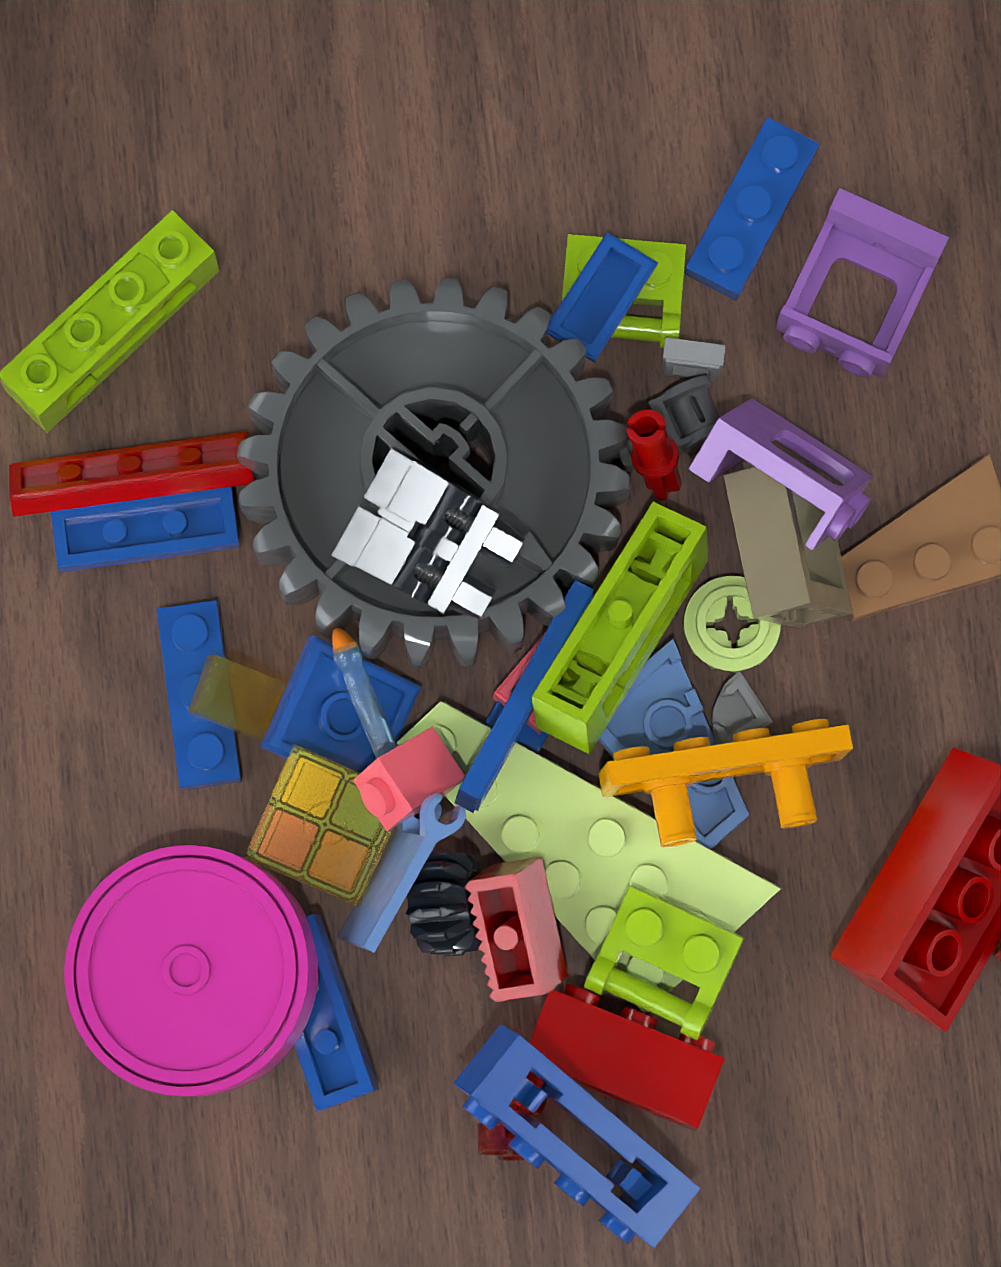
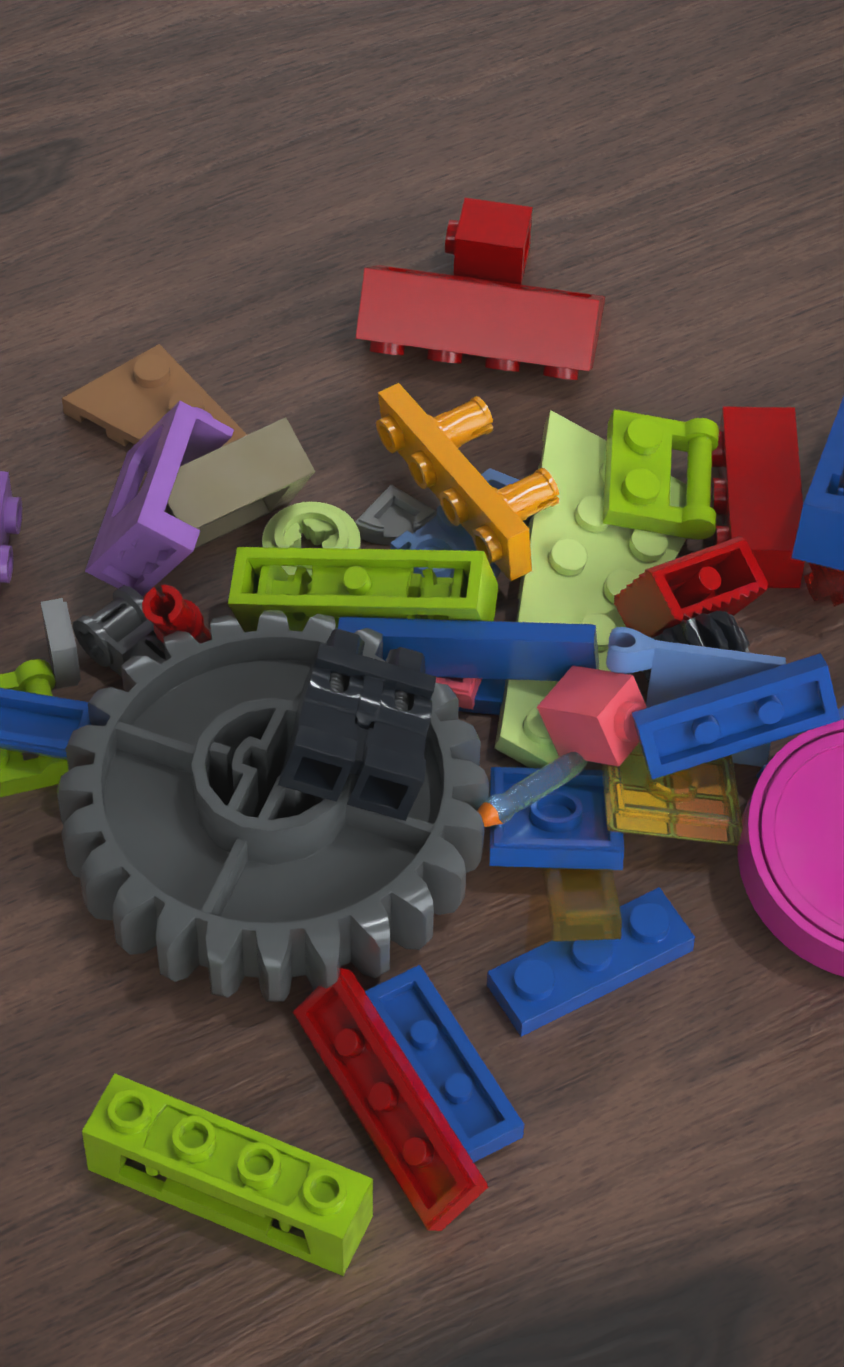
camera: 110 degrees left, 25 degrees down
(341, 888) = (736, 716): none -> blue plate

